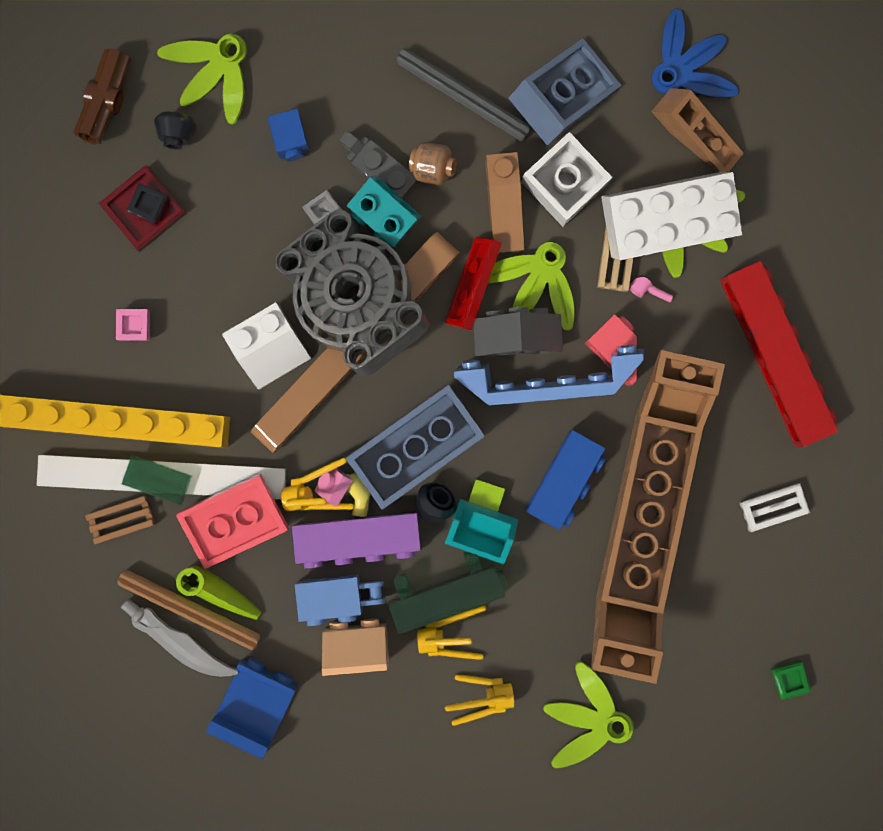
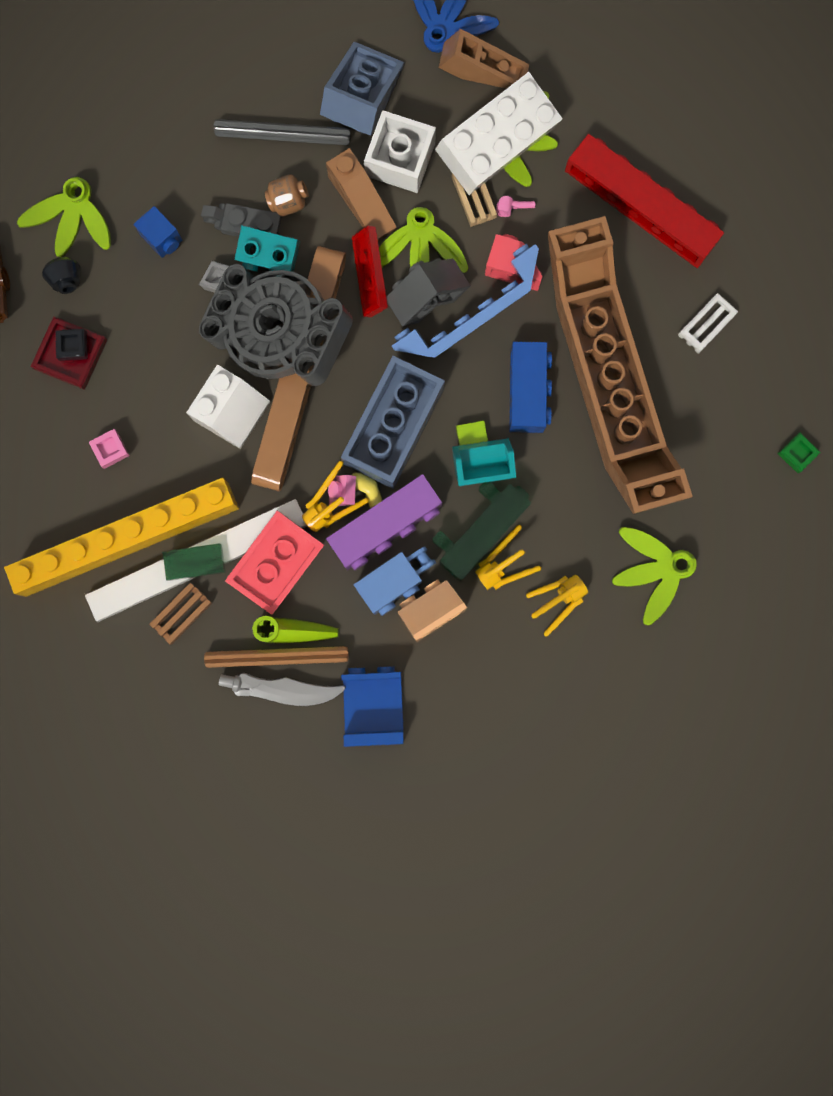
camera: 25 degrees left, 5 degrees down
(435, 502) = (433, 460): black cone -> none

